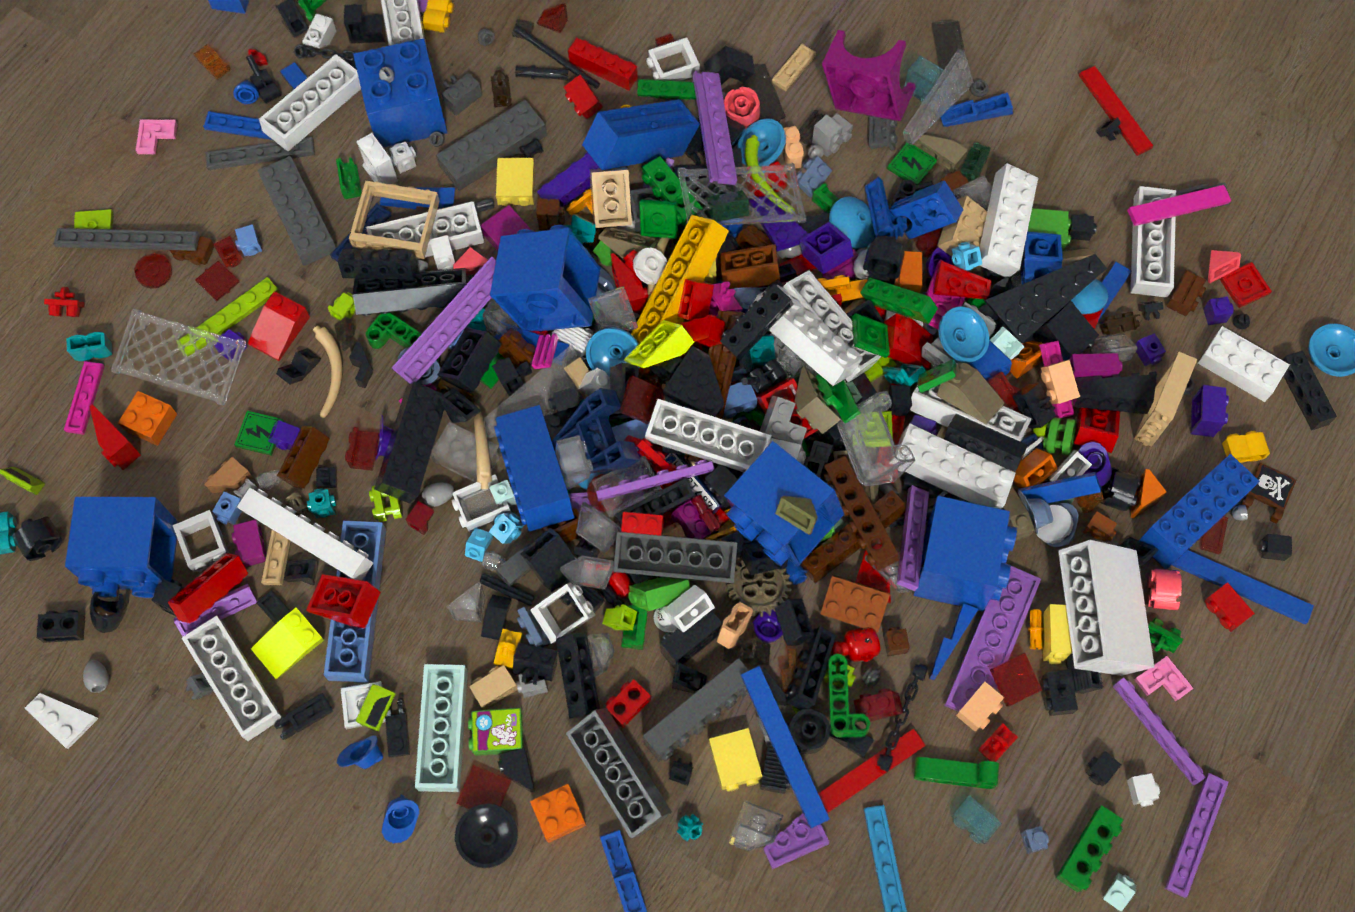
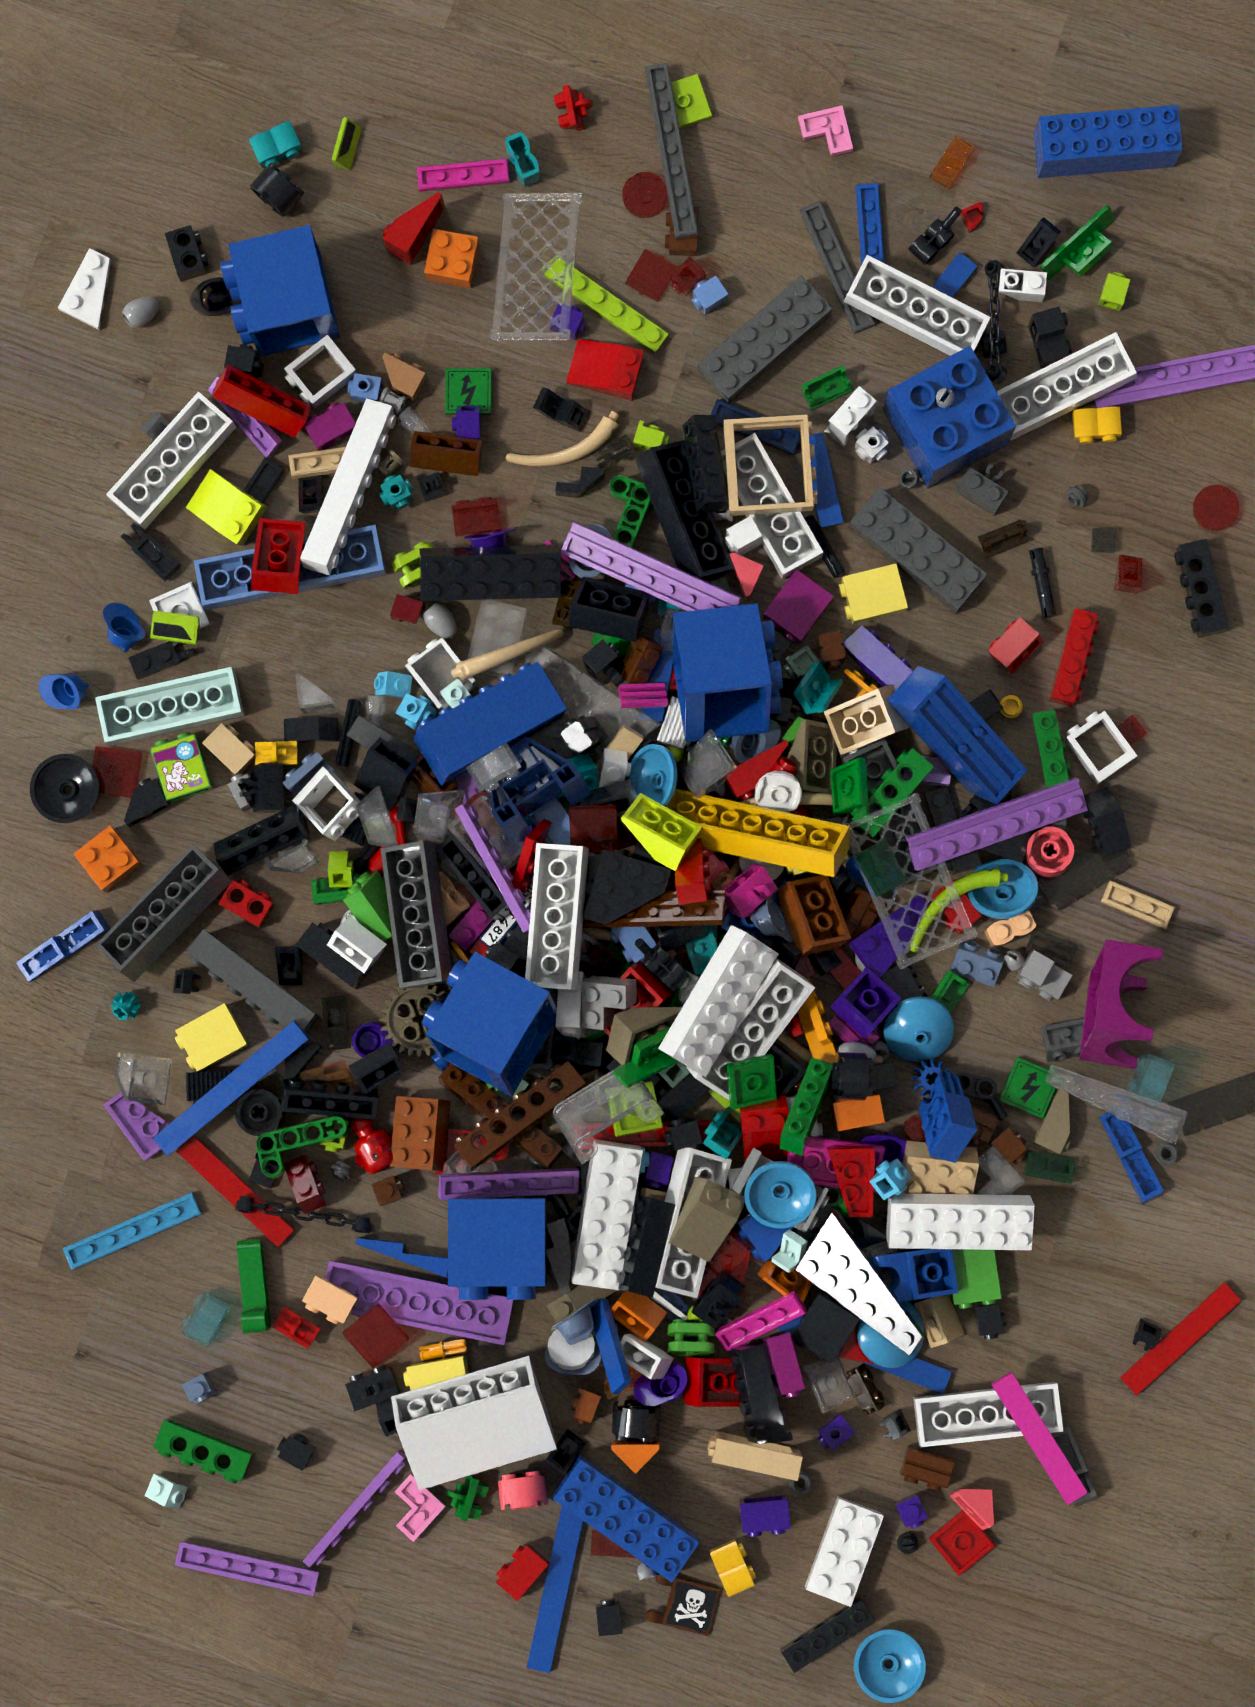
camera: 85 degrees right, 15 degrees up
(246, 92) = (916, 221): blue brick -> none
(458, 407) = (546, 614): black slope -> none
(531, 149) = (925, 600): black bush -> none
(556, 57) = (1070, 595): black piece -> none
(642, 523) = (443, 867): red brick -> none
(695, 299) = (736, 859): red brick -> none
(706, 513) = (479, 937): dark red axle -> none
(734, 625) = (358, 1001): light nougat brick -> none
(756, 321) = (706, 938): black brick -> none
(798, 512) = (464, 1040): olive slope -> none
(879, 207) = (945, 1057): blue tile -> none
(937, 375) = (711, 1171): green tile -> none
(1060, 382) = (750, 1323): light nougat brick -> none
(1143, 789) = (283, 1501): white brick -> none

